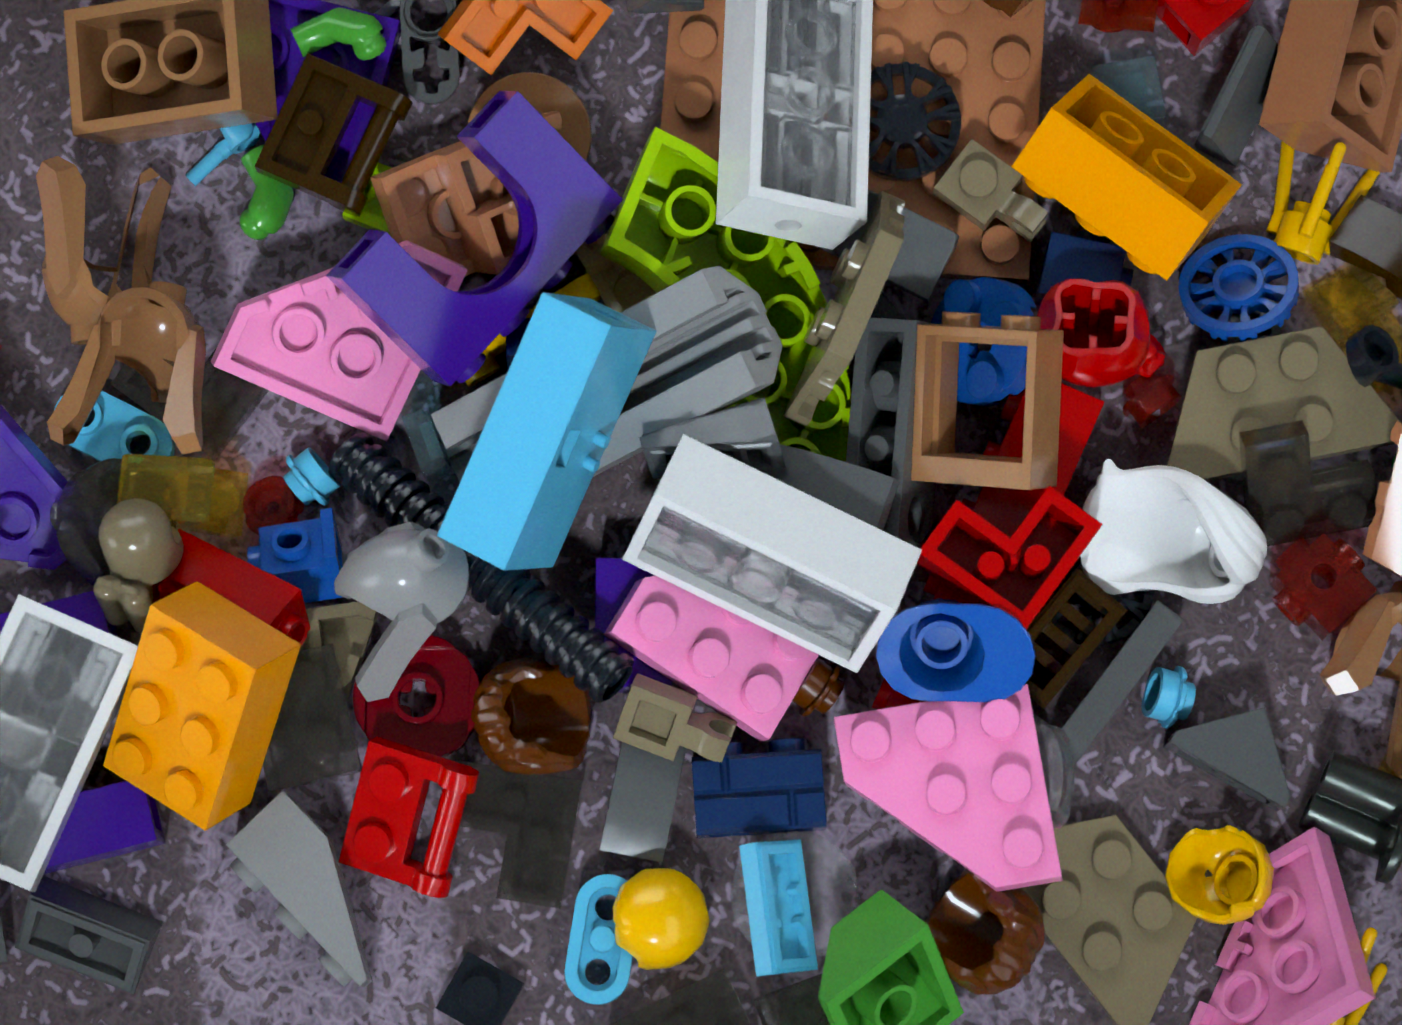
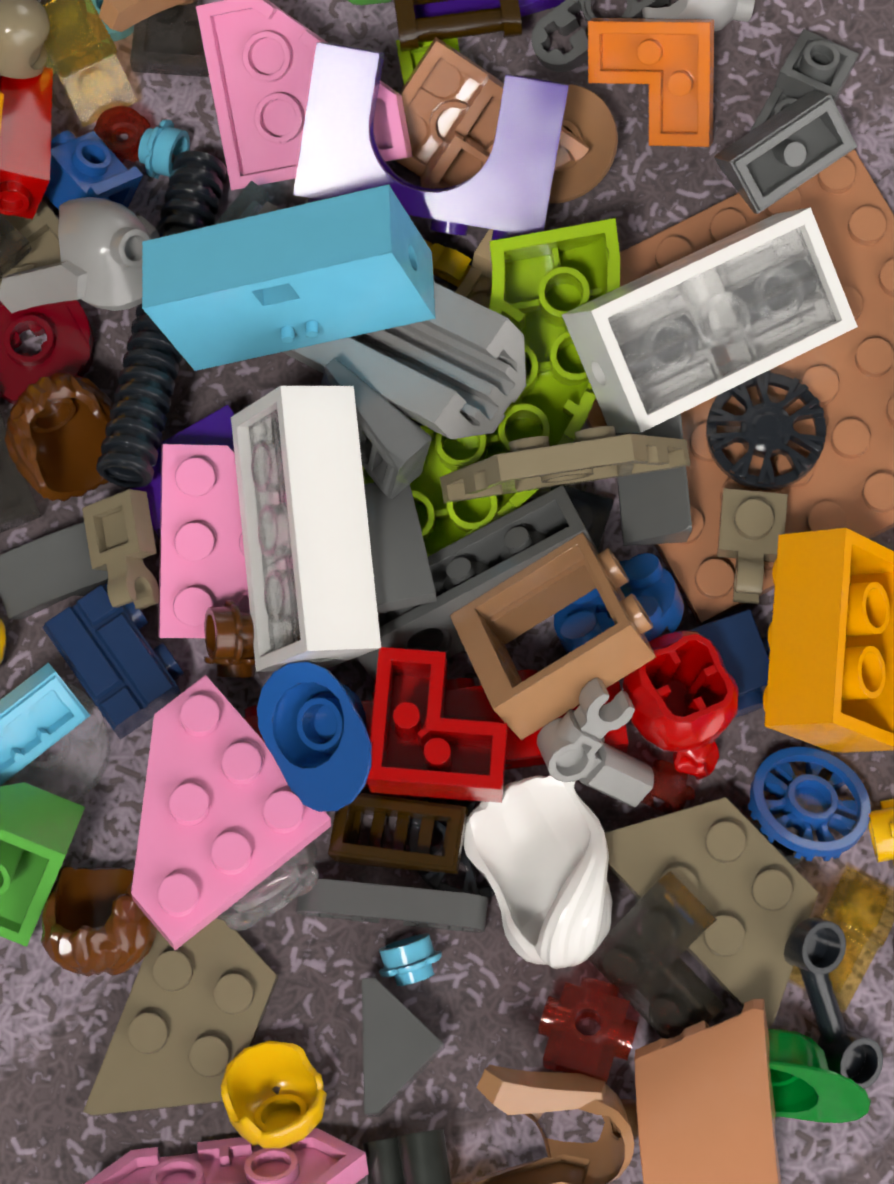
camera: 60 degrees right, 5 degrees down
(807, 676) = (228, 632): none -> reddish brown plate
(1095, 443) = (576, 747): none -> light grey bar

